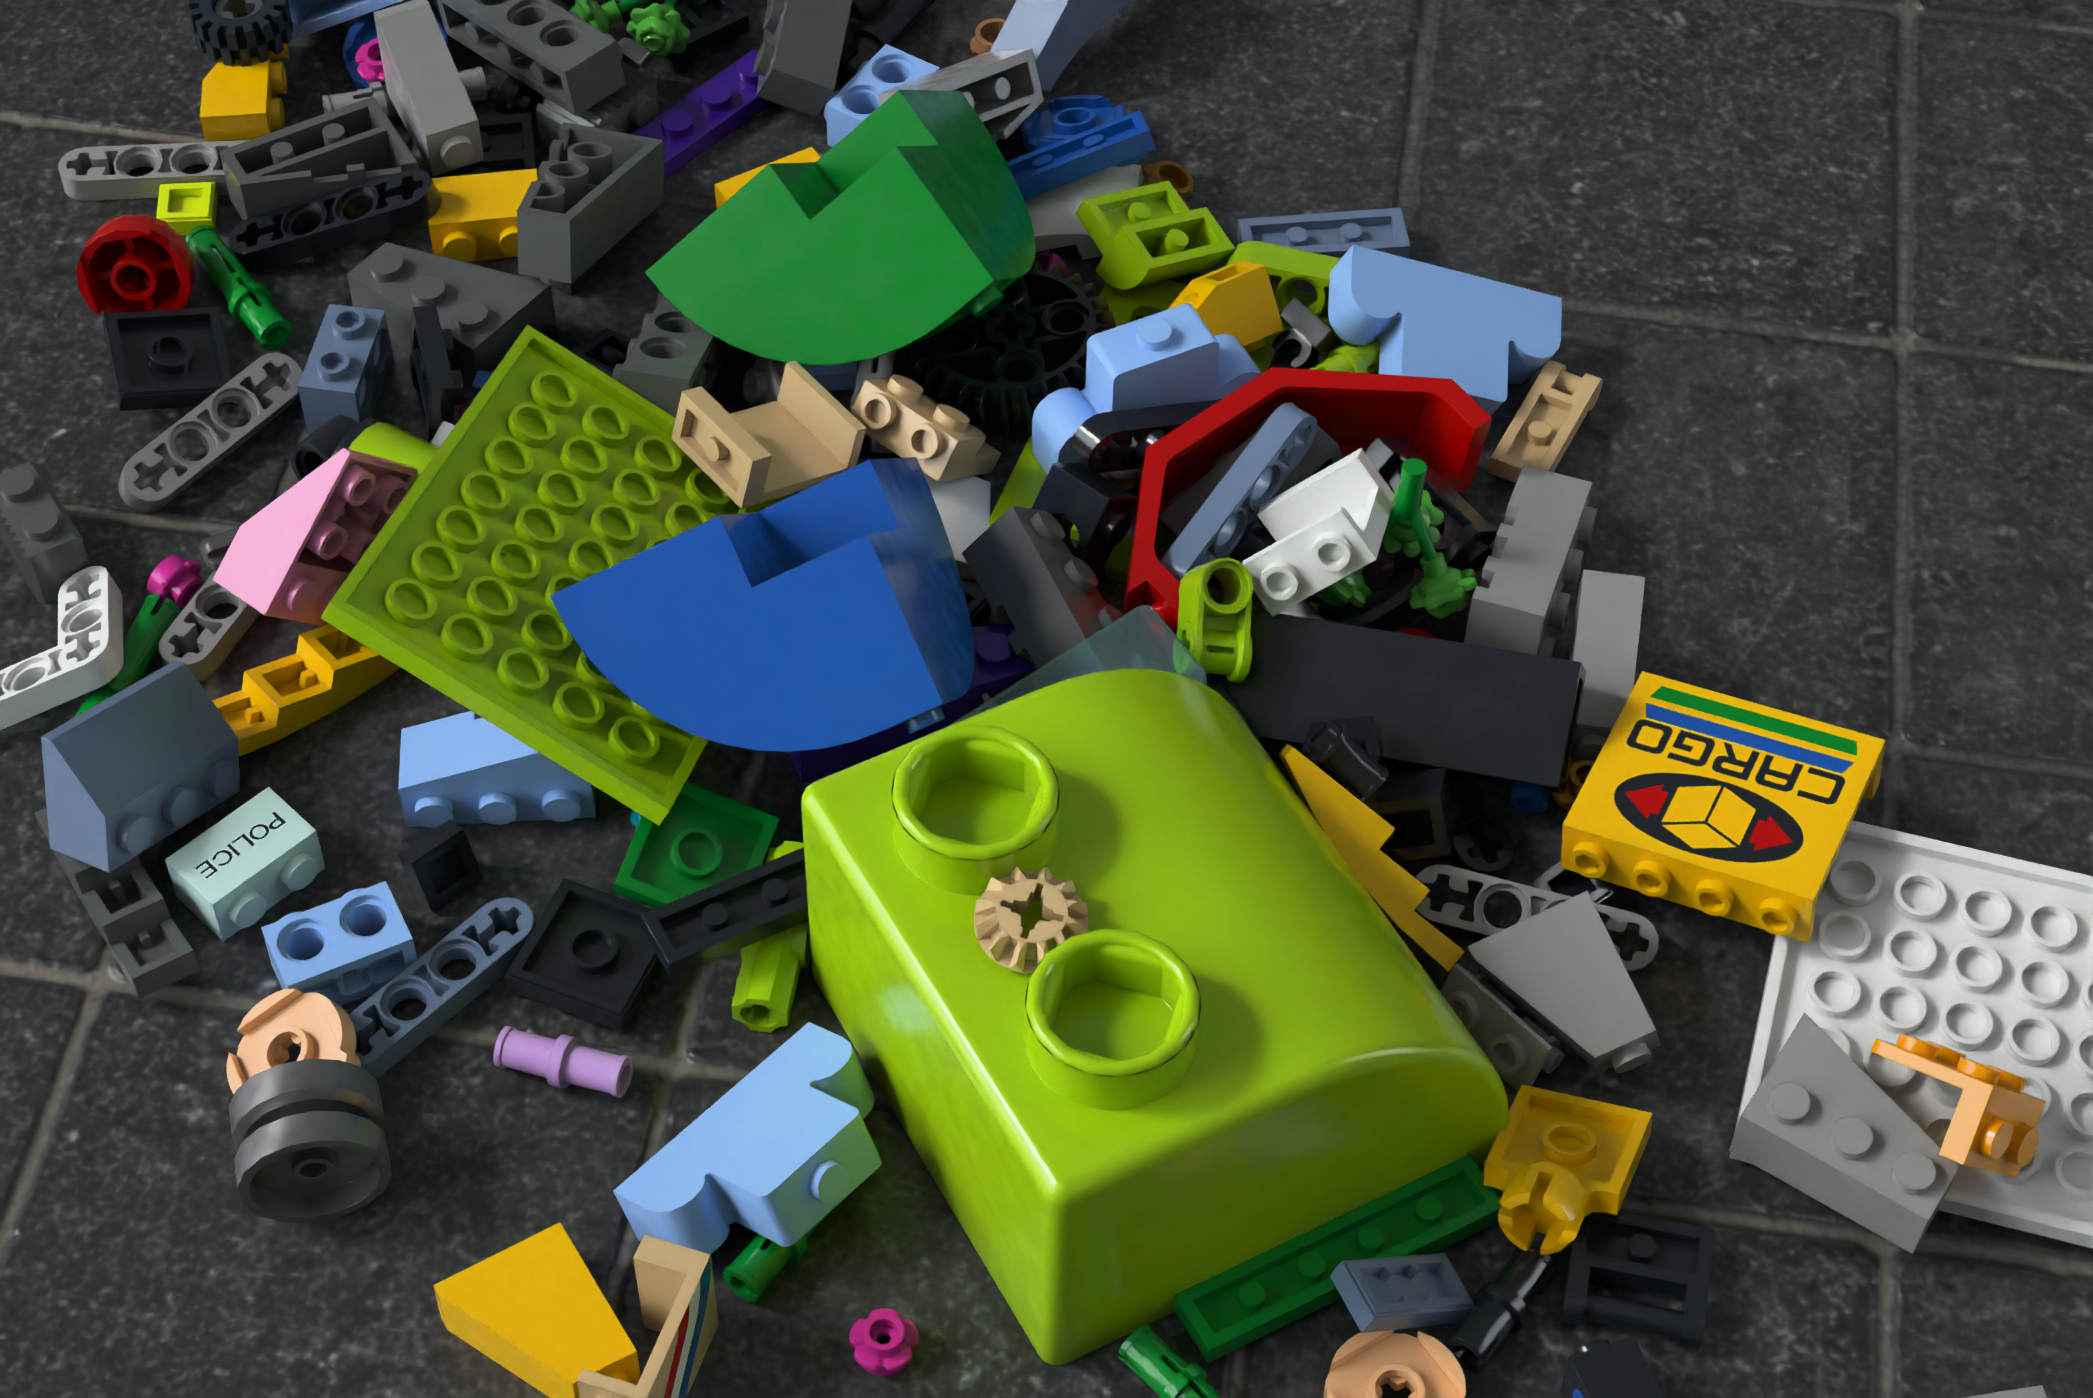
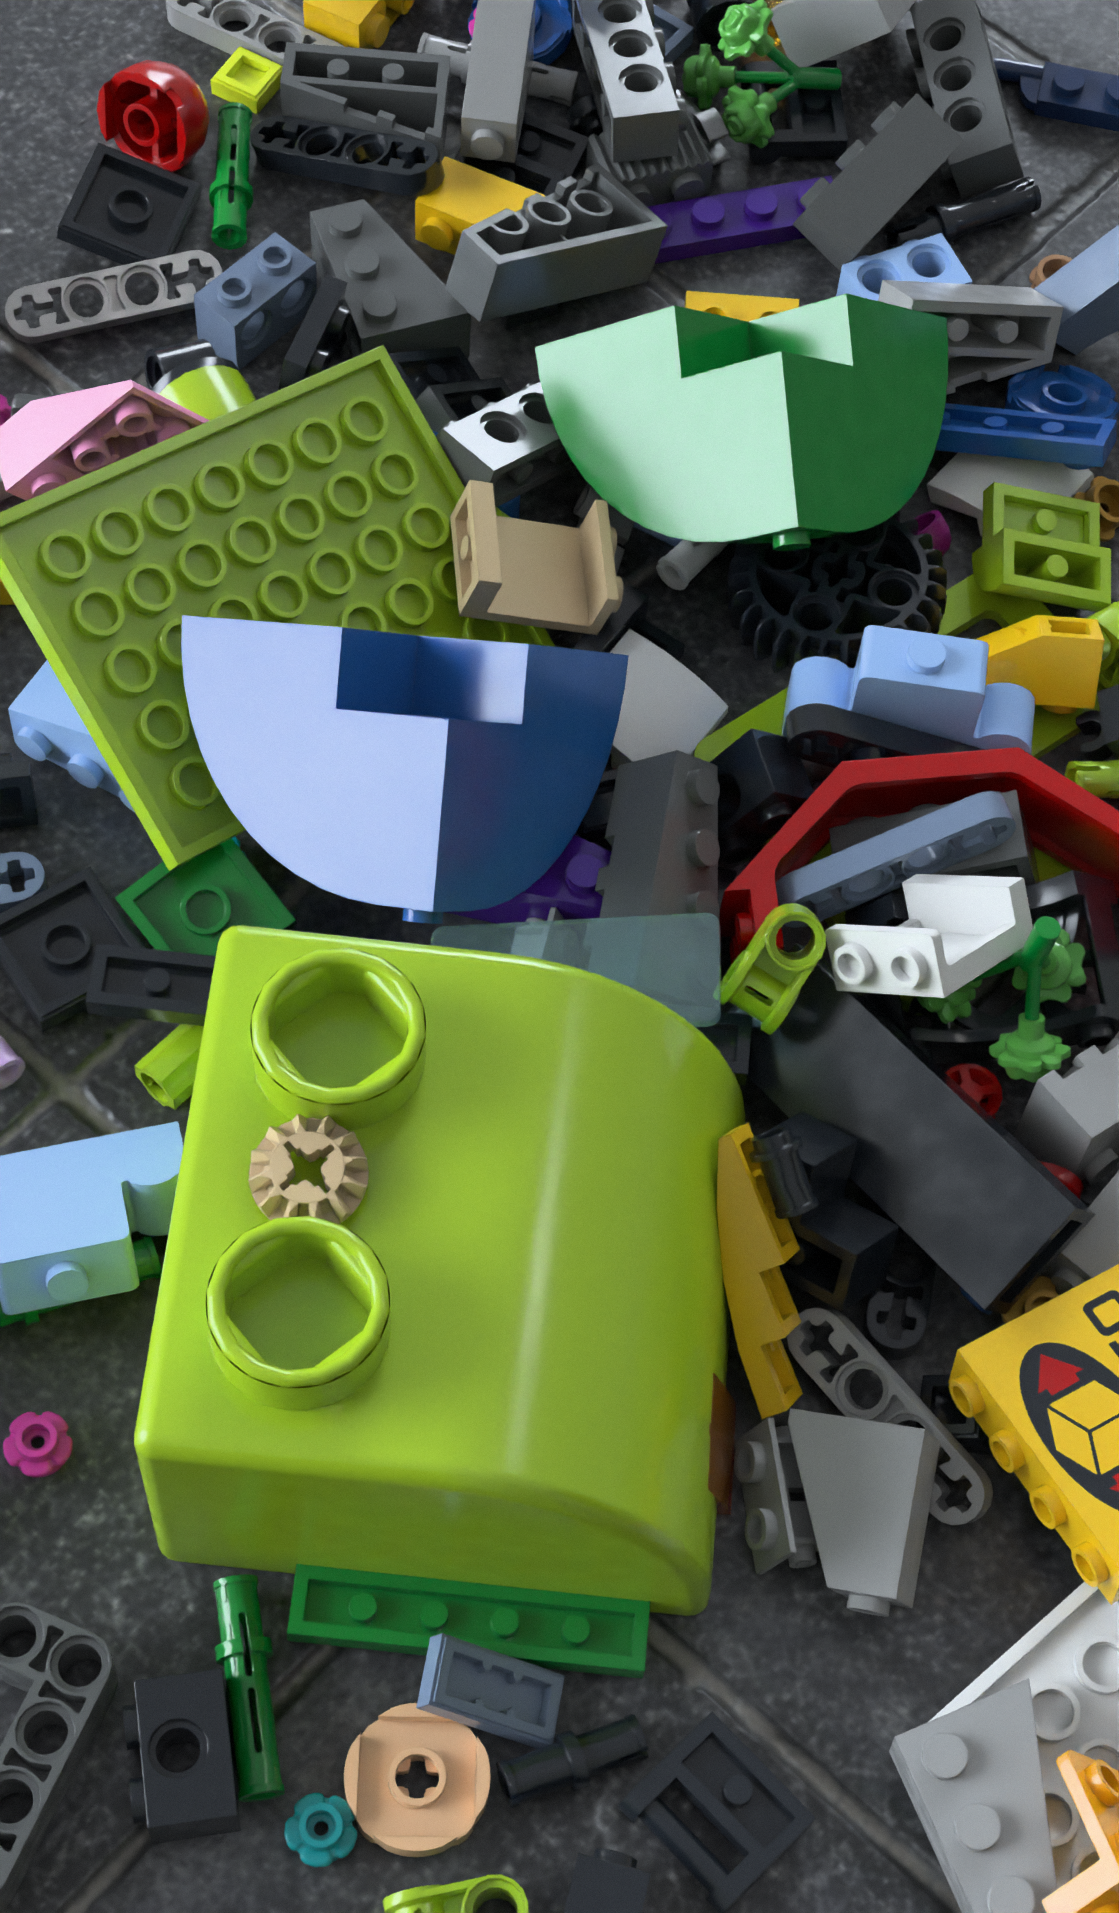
camera: 30 degrees right, 10 degrees up
(921, 428) = (687, 628): tan plate -> none
(1562, 1164) = (723, 1666): yellow plate -> none

